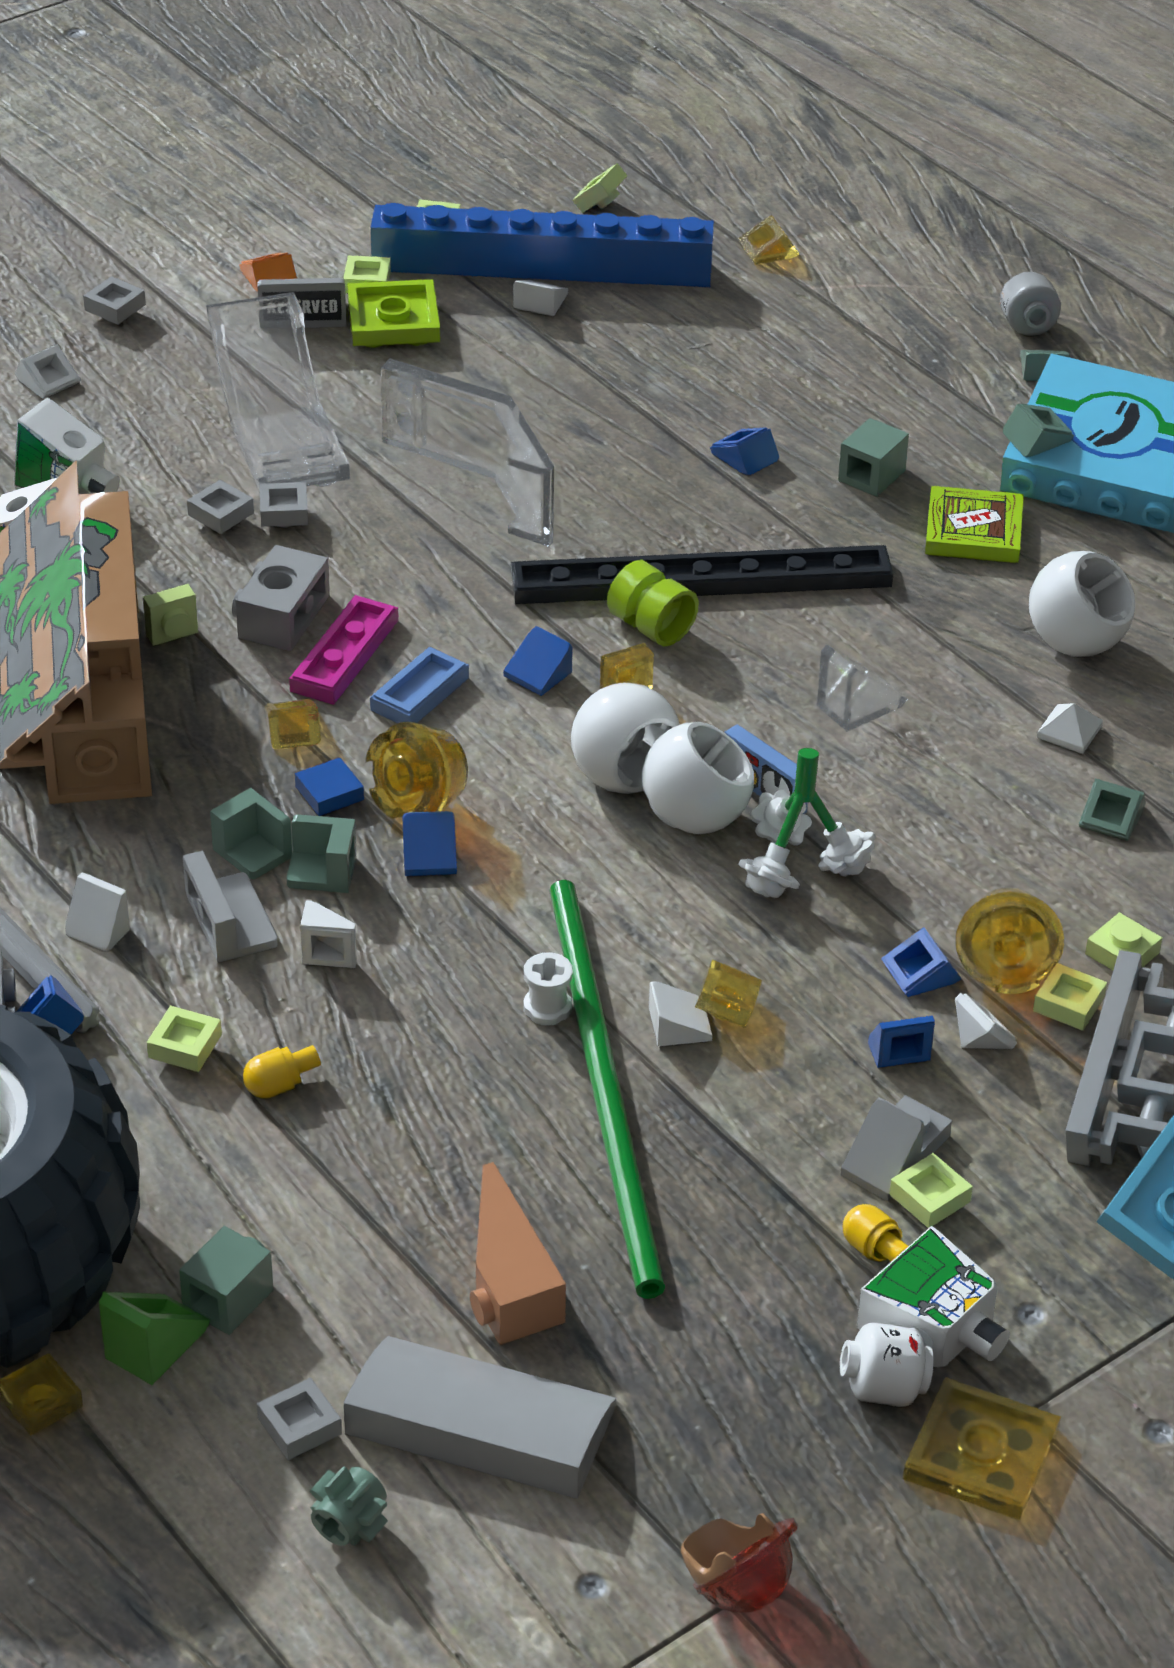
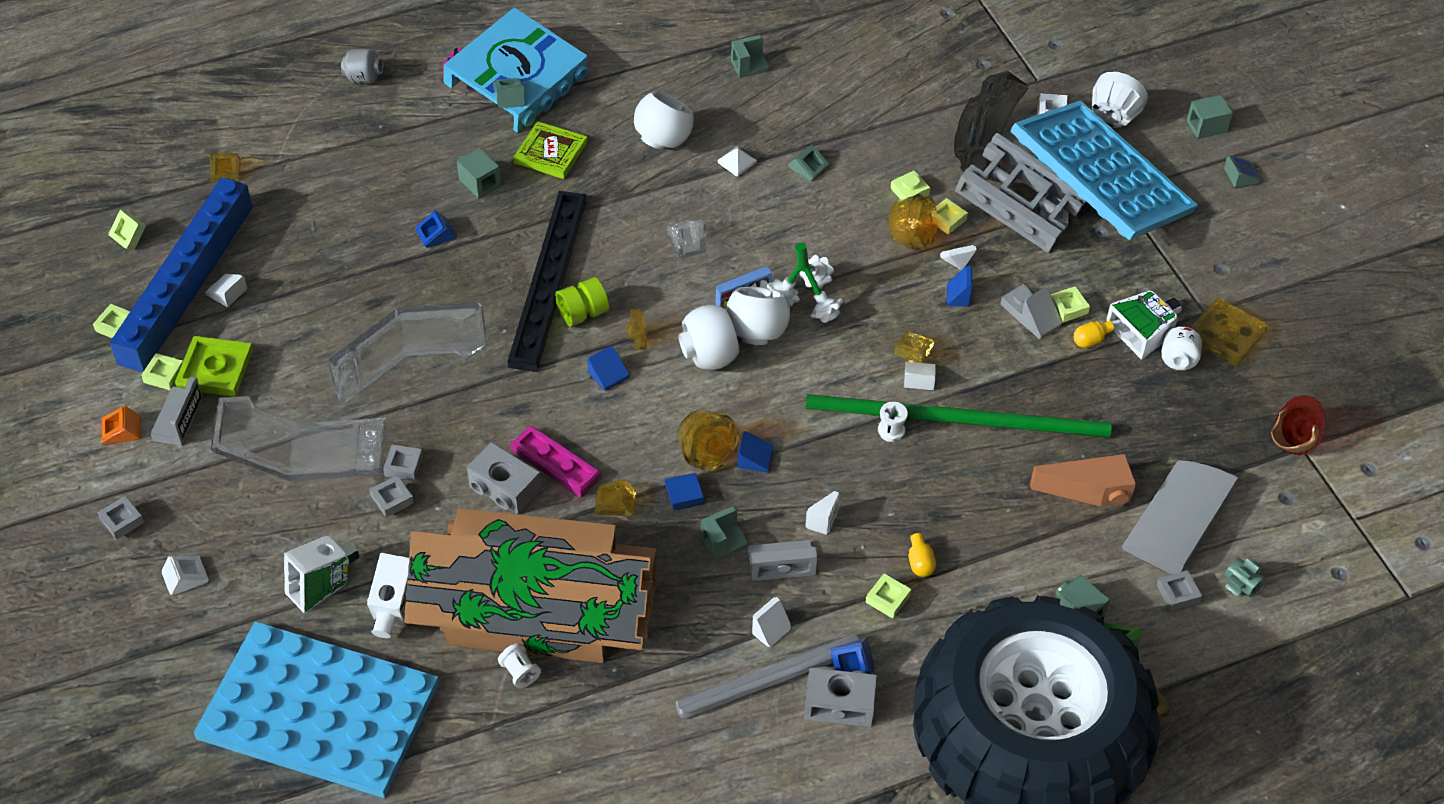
camera: 75 degrees left, 10 degrees up
(322, 853) = (753, 502): sand green panel -> none
(419, 687) = (605, 431): medium blue tile -> none
(920, 965) = (904, 268): blue slope -> none
(1034, 362) = (413, 78): sand green slope -> none

